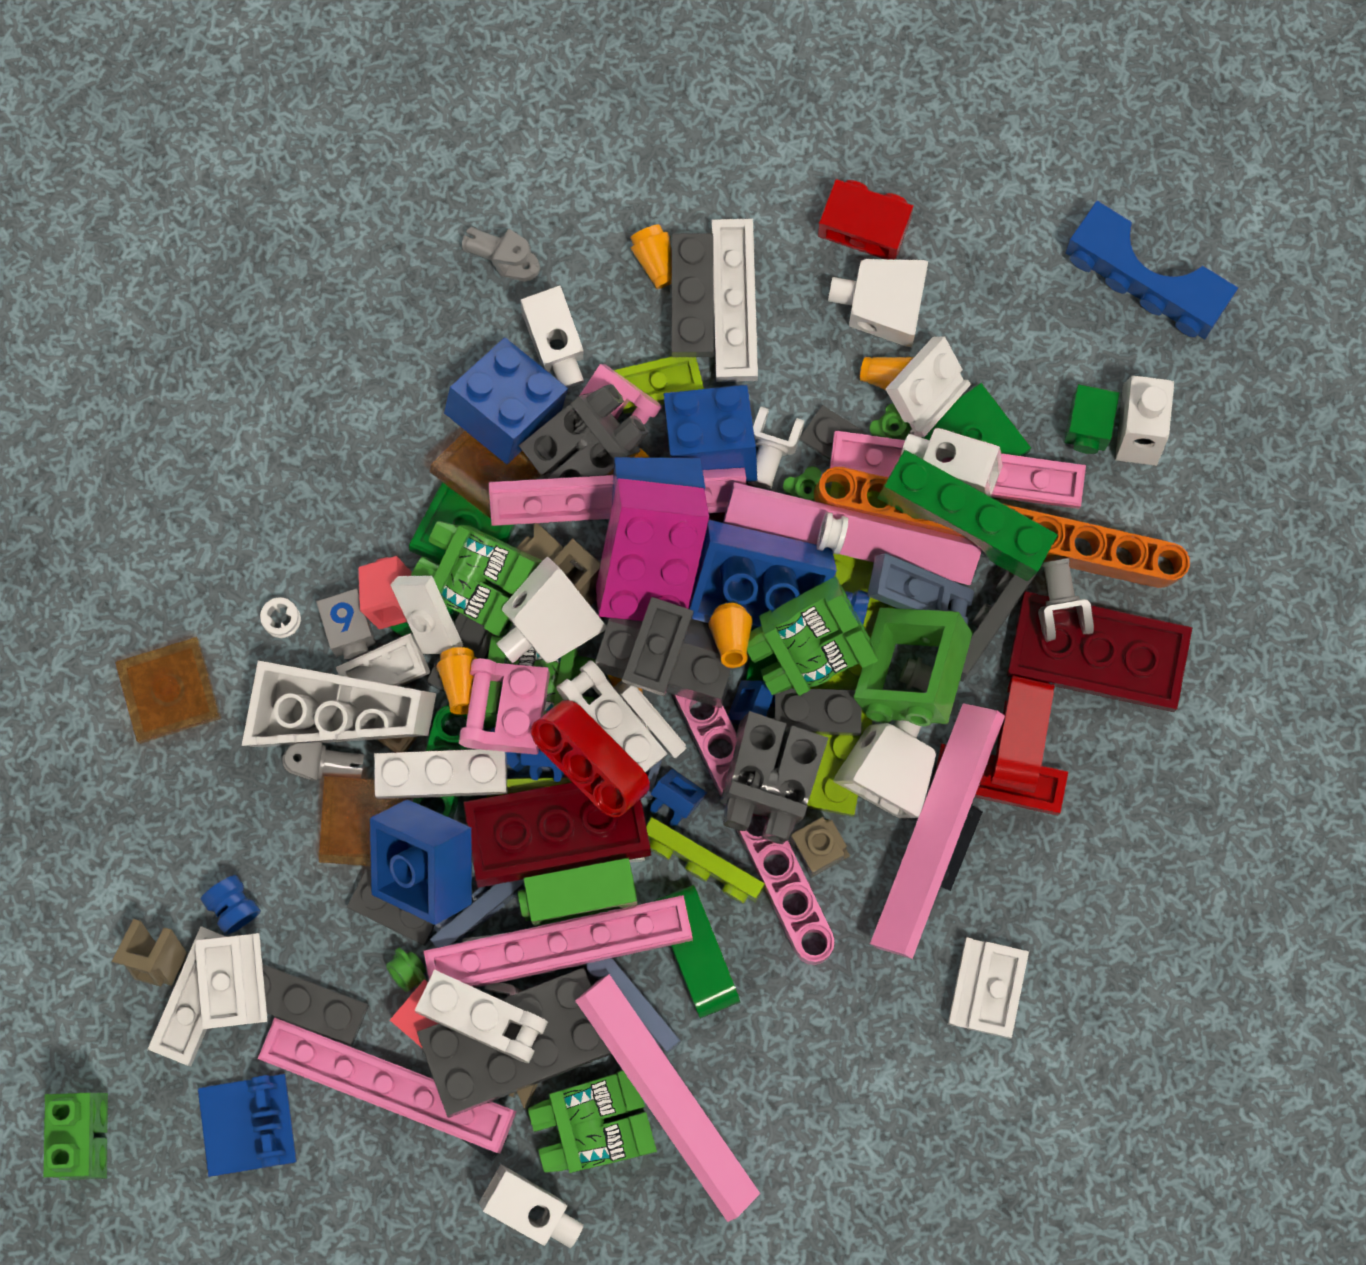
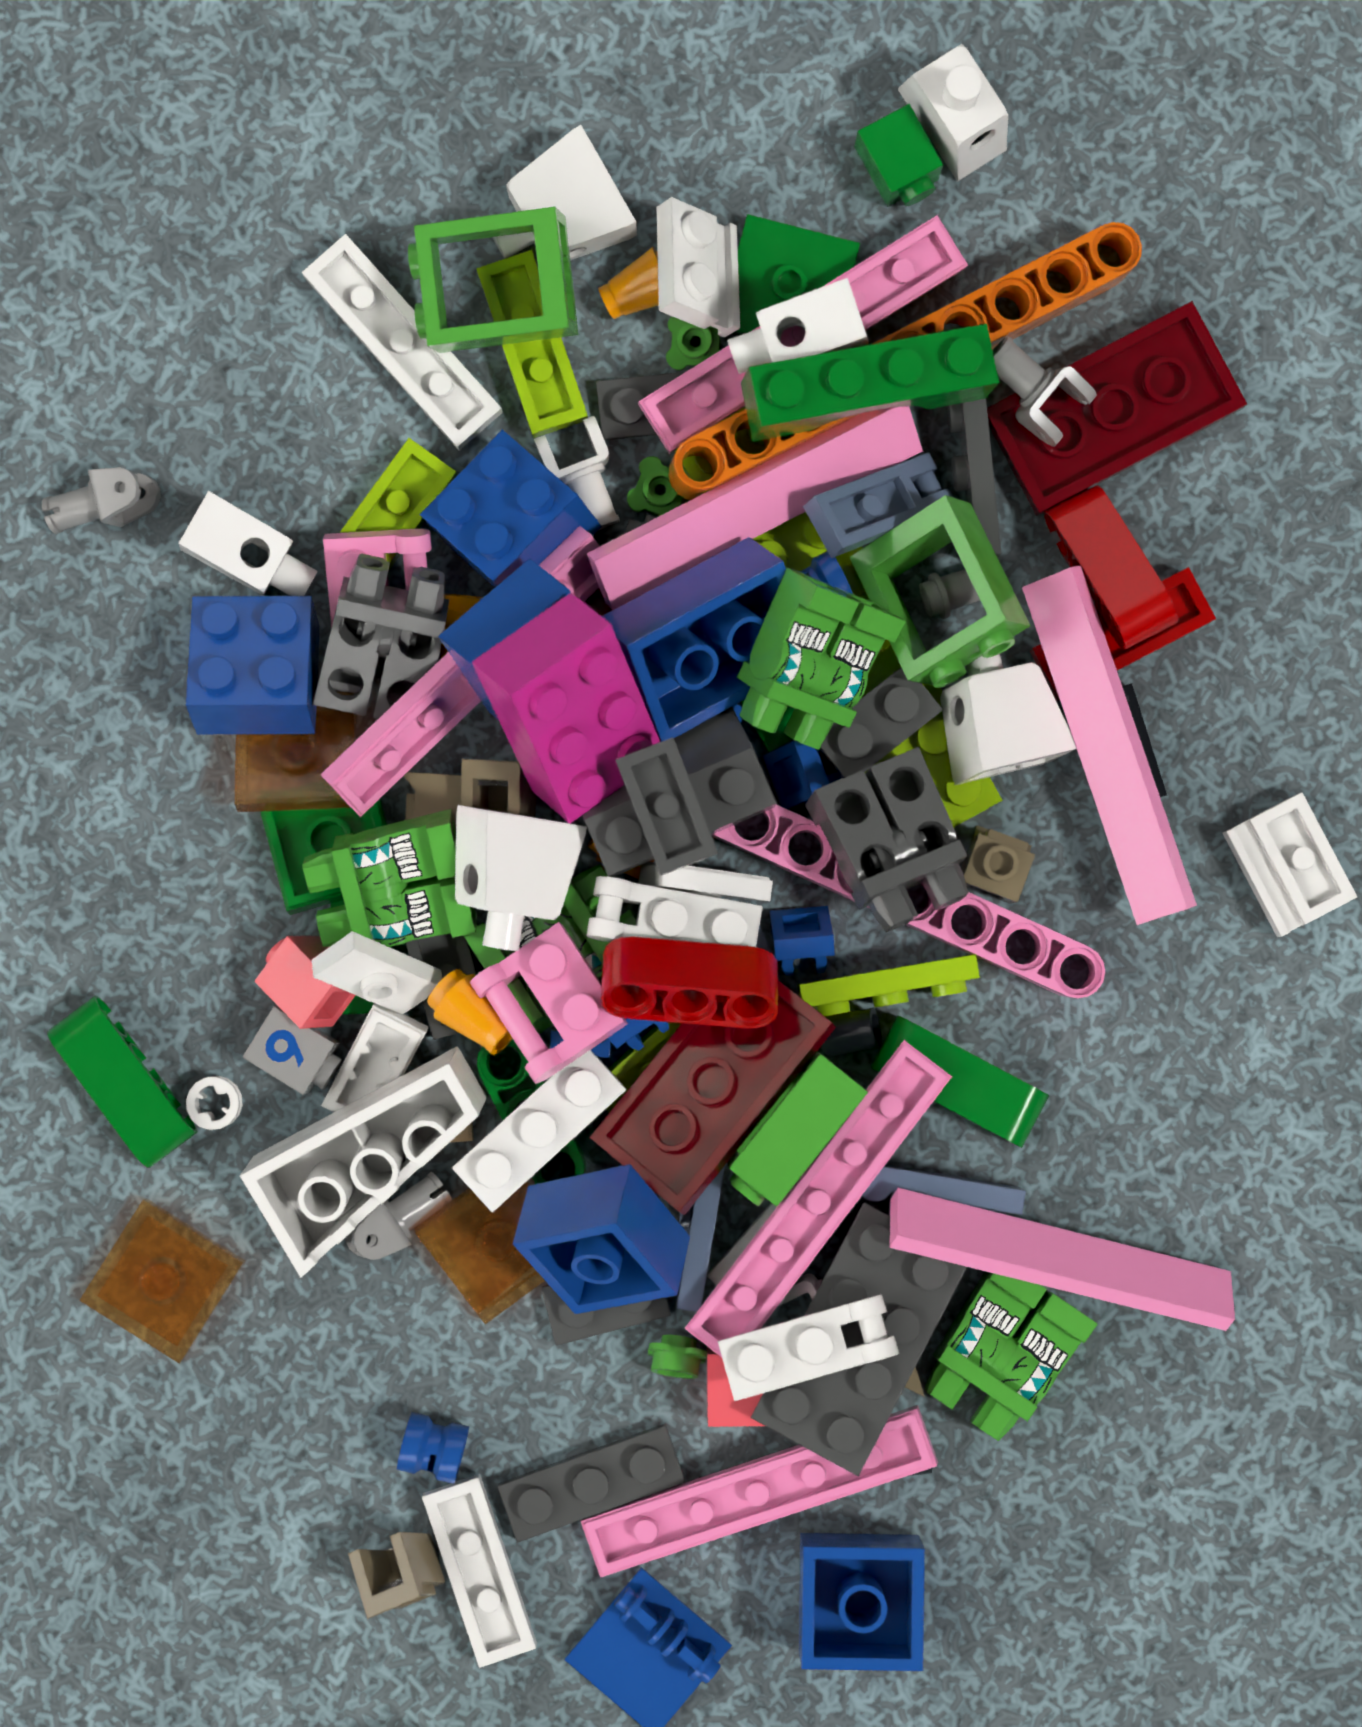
camera: 45 degrees left, 10 degrees up
(230, 981) = (506, 1528): white plate -> none
(239, 564) = (119, 1083): none -> green beam
(388, 1196) = (861, 1602): none -> blue brick
(513, 1196) = (1012, 1492): white torso -> none
(654, 254) = (273, 364): light orange cone -> none
(659, 872) = (853, 1033): none -> black hinge
(693, 295) = (355, 376): dark grey plate -> none
(731, 632) = (726, 722): light orange cone -> none
(804, 357) = (540, 366): none -> lime plate
(832, 533) = (740, 521): white bush -> none
(843, 325) = (554, 272): none -> bright green window
(865, 219) = (470, 131): red brick -> none

